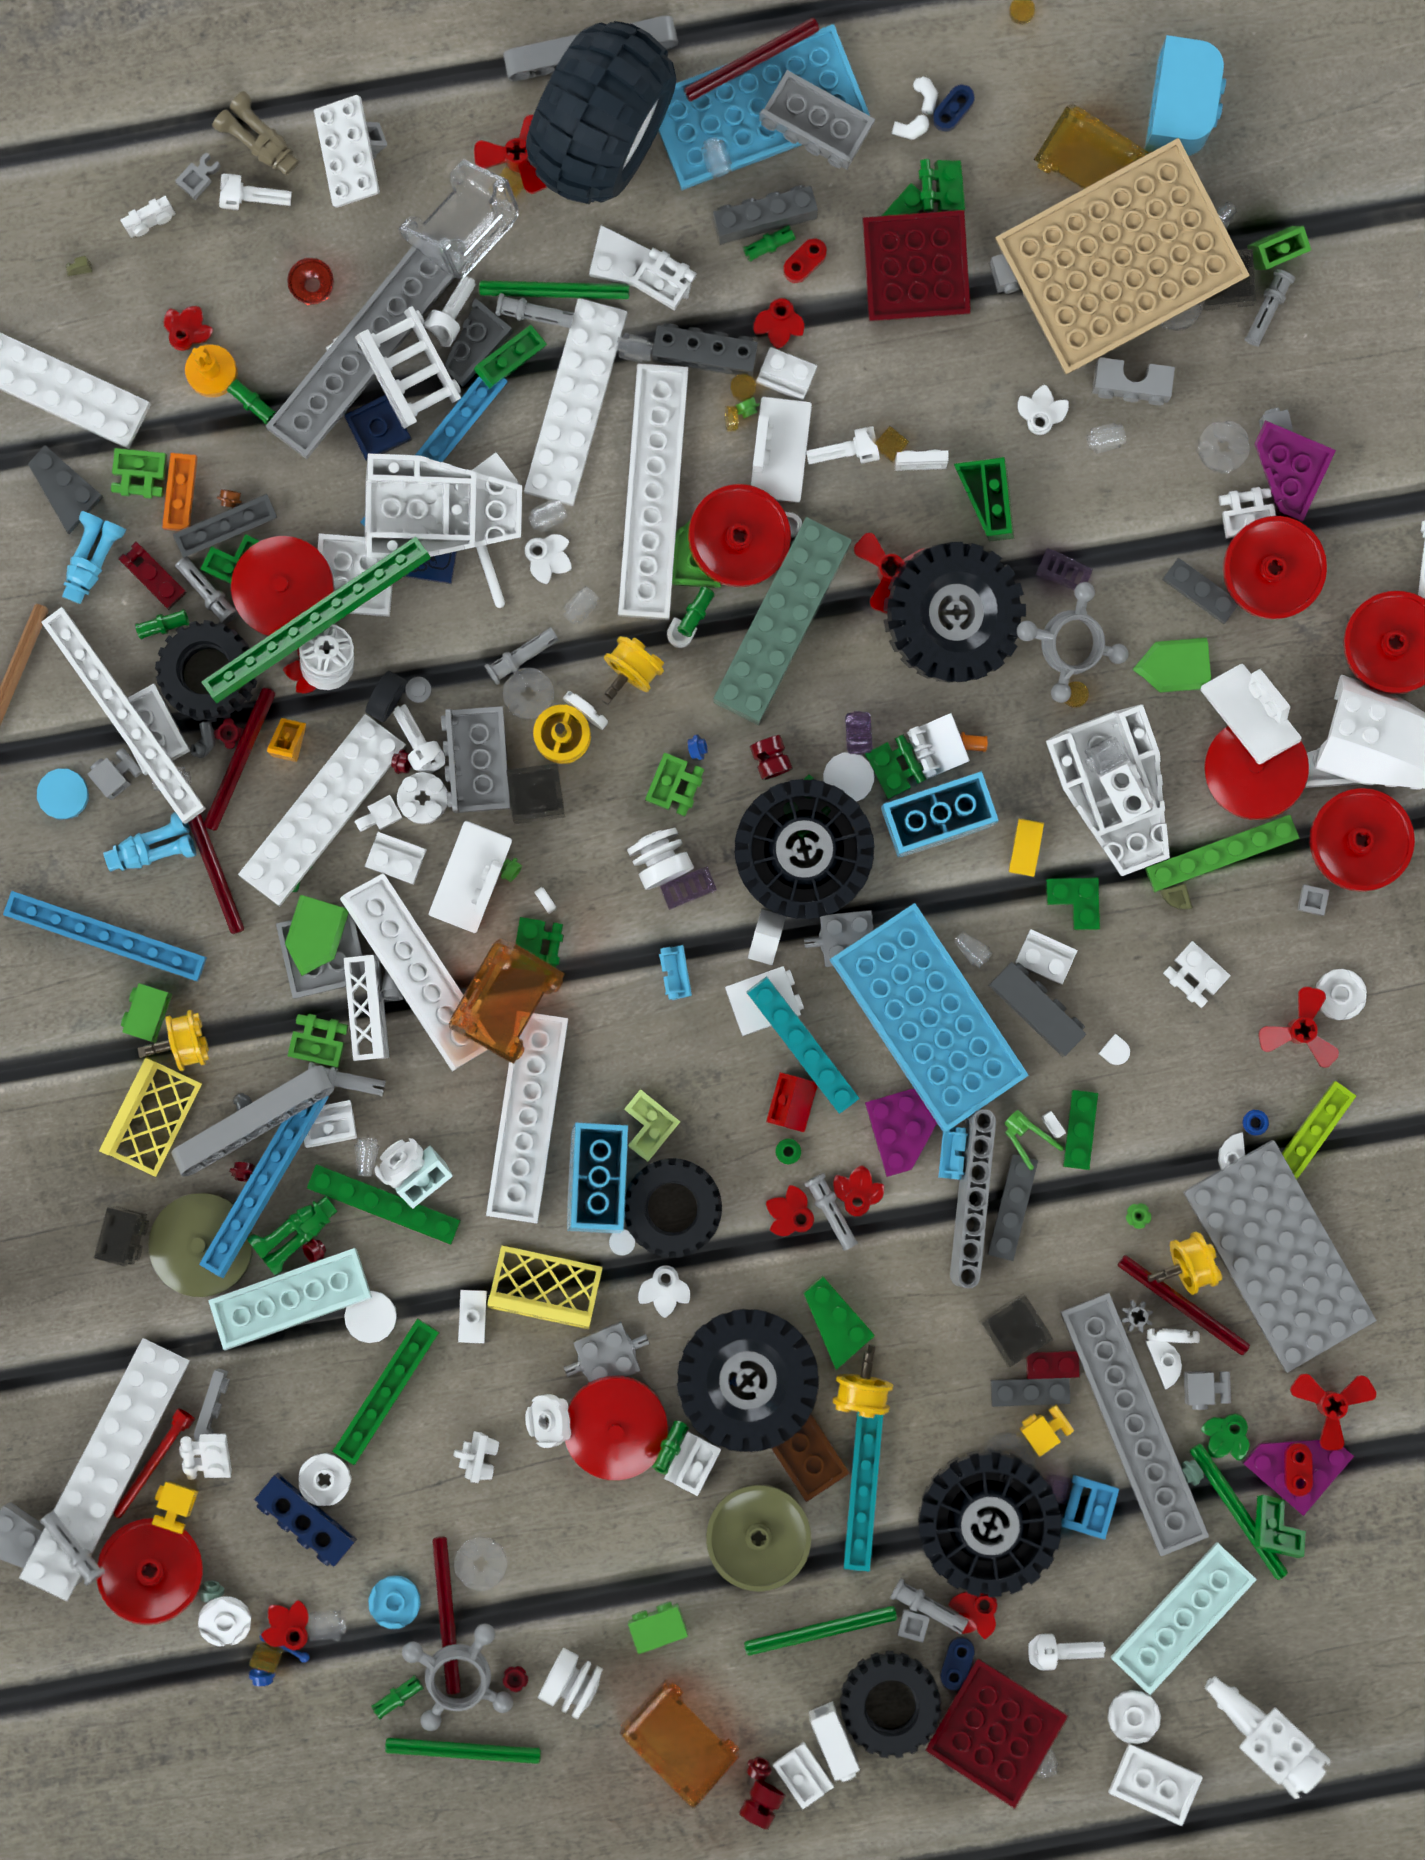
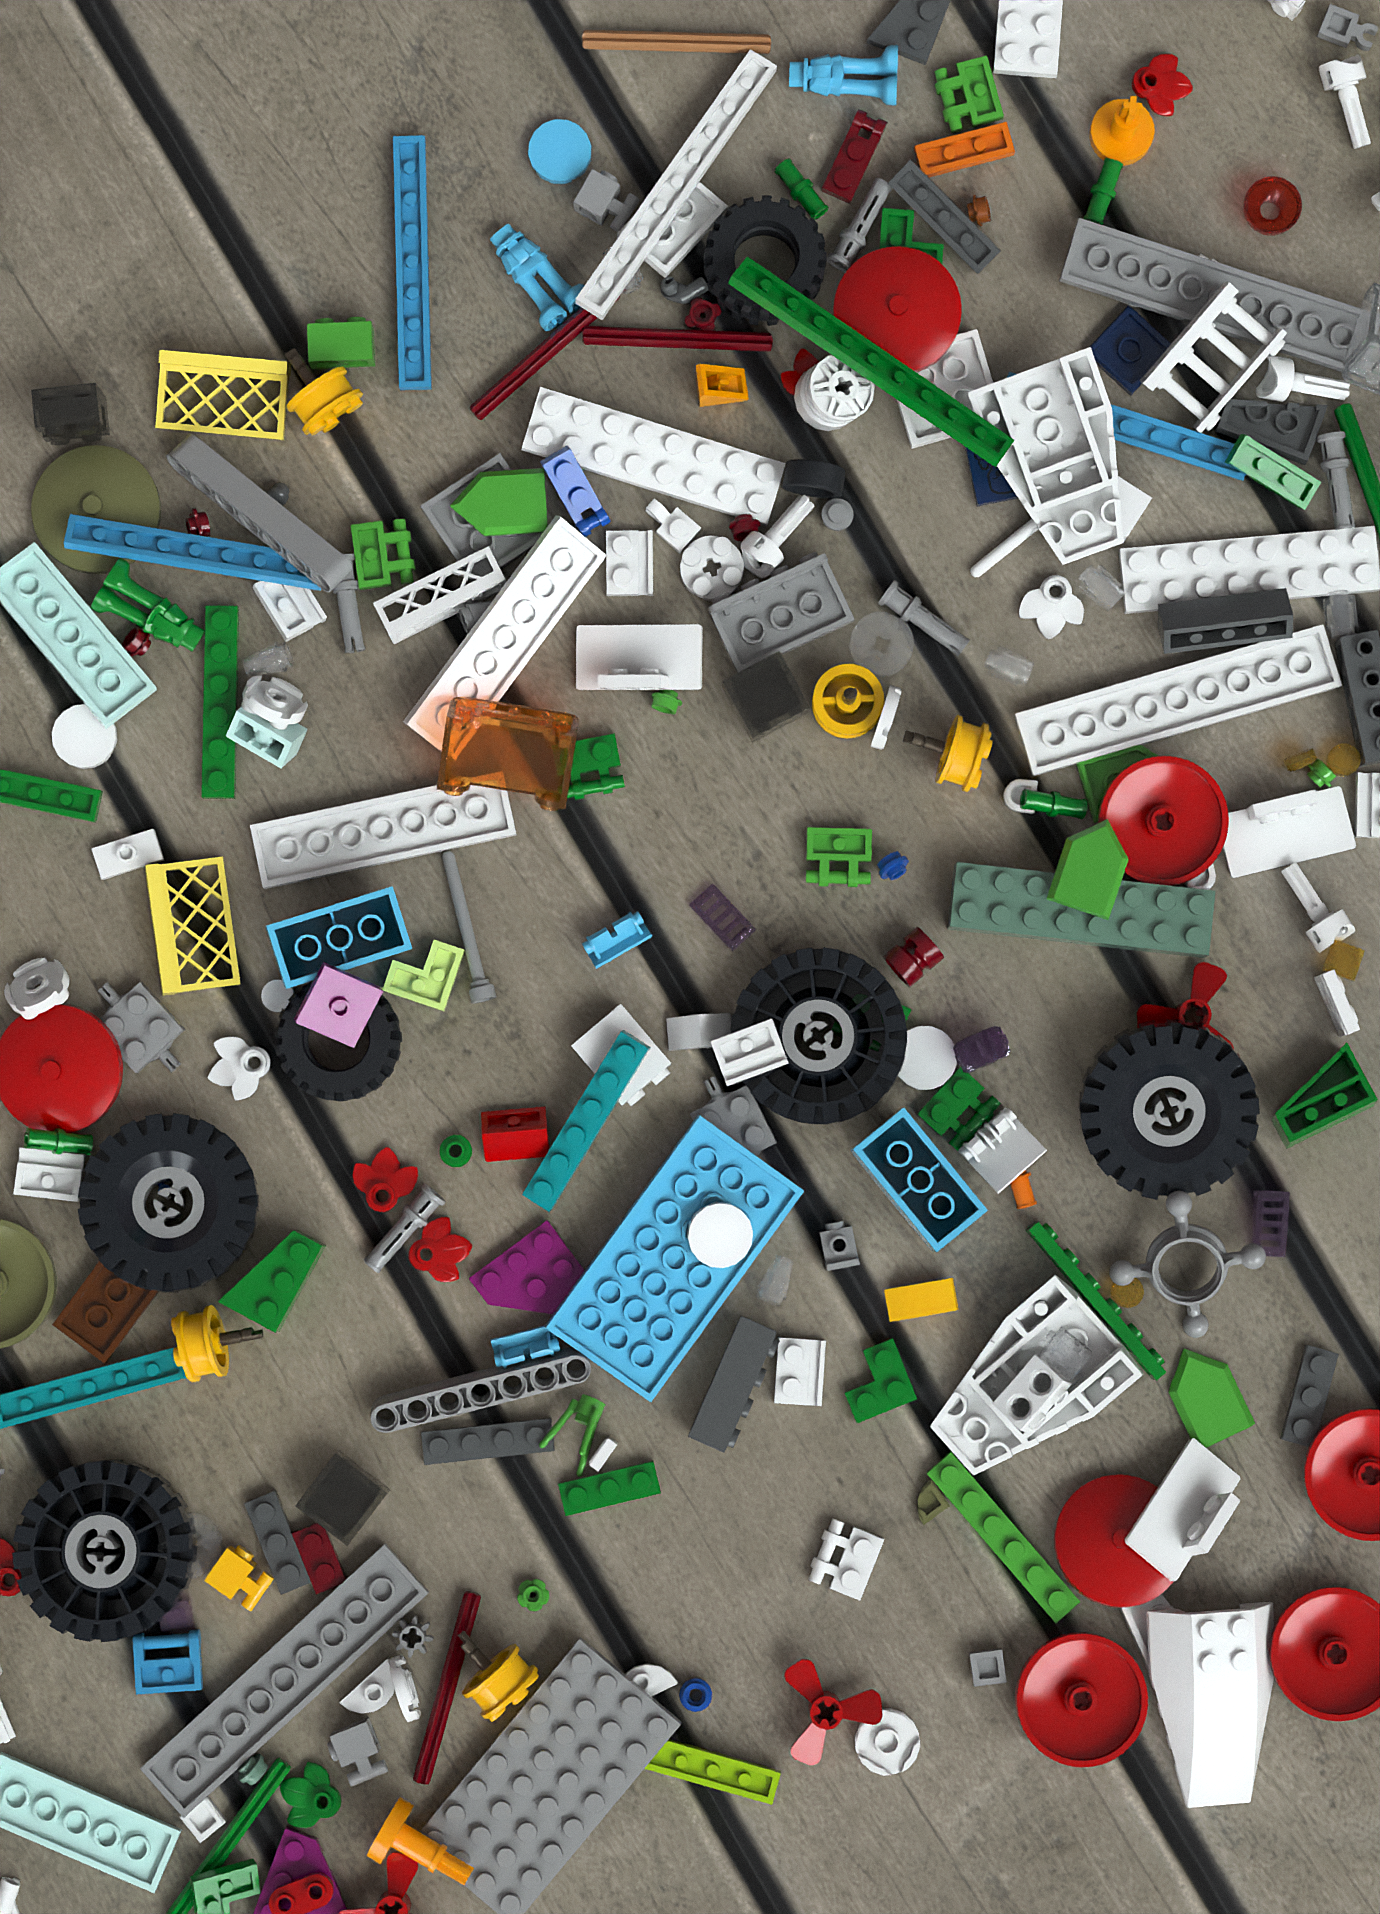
camera: 65 degrees right, 0 degrees up
(326, 878) = (574, 490): none -> plate
(545, 900) = (645, 755): white tile -> none
(613, 406) = (1225, 620): none -> dark grey brick
(649, 1196) = (338, 1005): none -> plate
(660, 858) = (743, 870): white wheel -> none
(672, 1087) = (481, 989): none -> light grey piece
(757, 602) = (1090, 871): none -> bright green tile
(798, 904) = (749, 1052): none -> white plate
(924, 977) = (720, 1235): none -> white tile
(975, 895) = (841, 1259): none -> light grey brick
(1062, 722) = (1105, 1309): none -> green plate
(1115, 1051) = (718, 1495): white tile -> none
(1215, 1522) = (204, 1819): none -> white tile
(1292, 1370) = (415, 1845): none -> light orange piece

